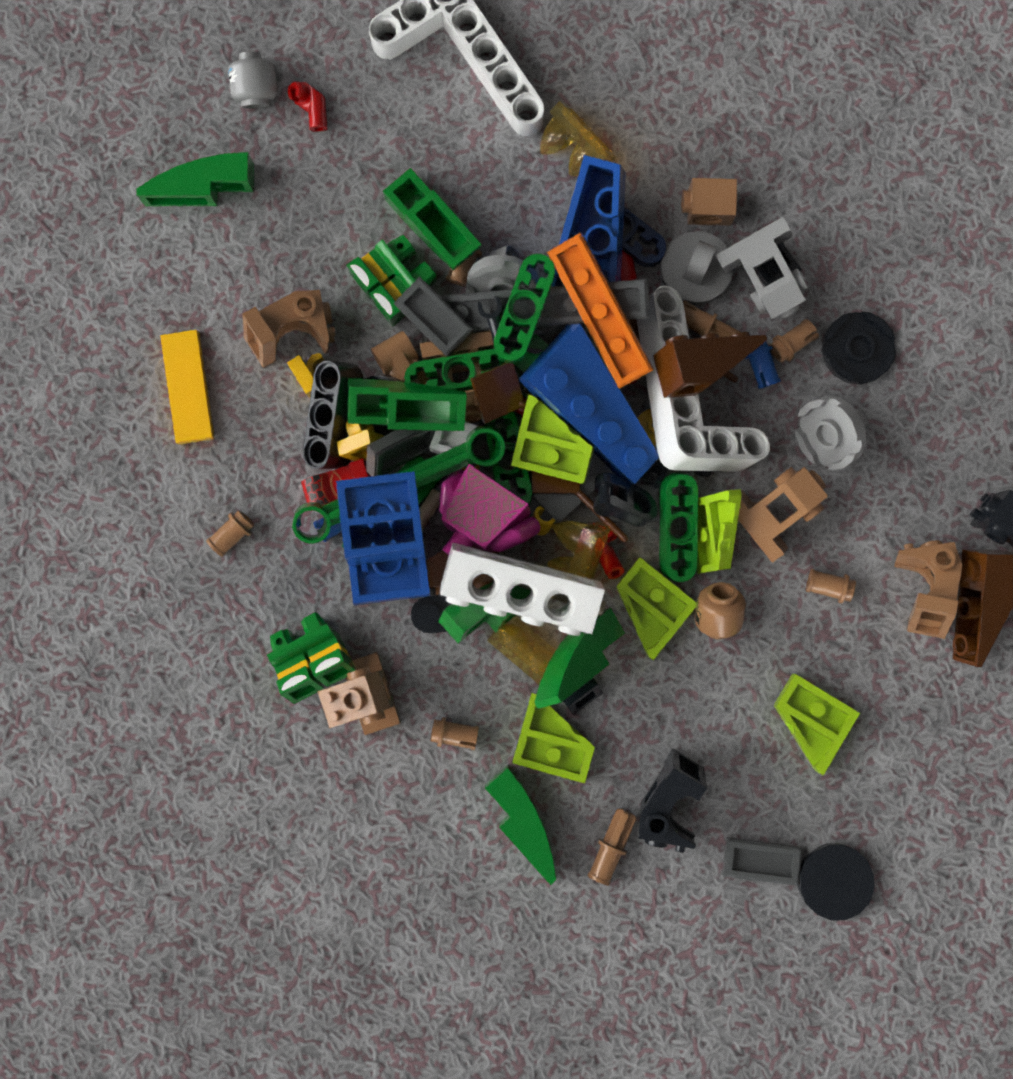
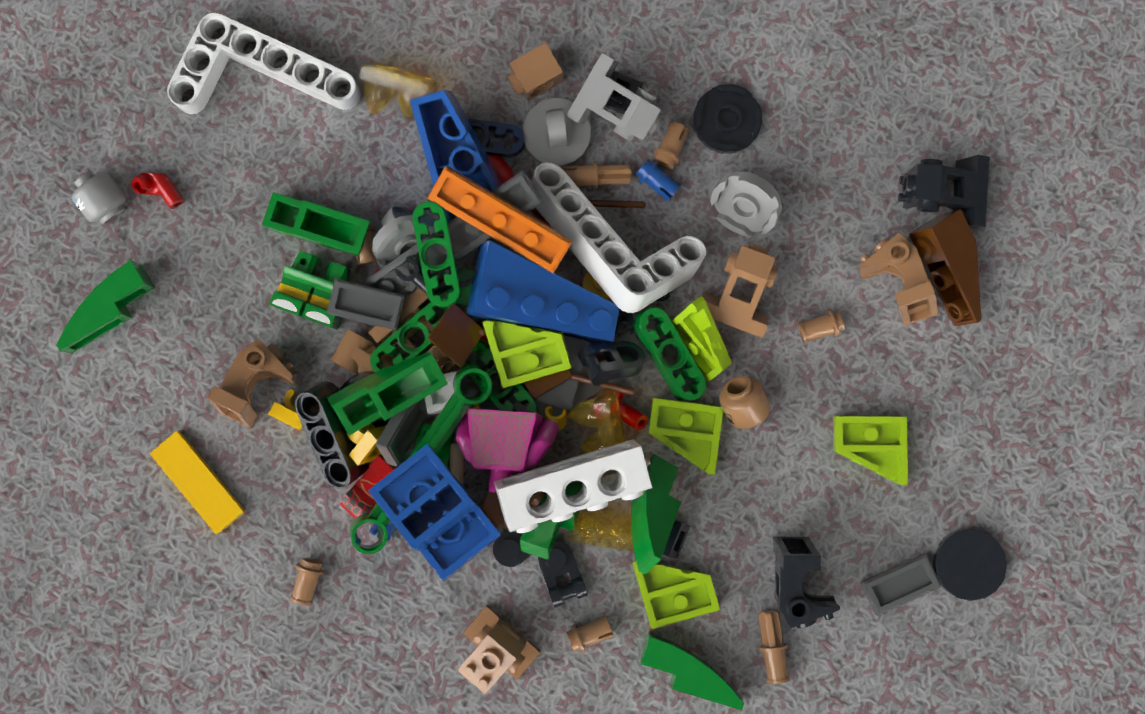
camera: 25 degrees left, 0 degrees up
(308, 660) = (435, 647): green hips -> none
(466, 654) = (559, 563): none -> black plate
(692, 365) = (603, 216): reddish brown slope -> none

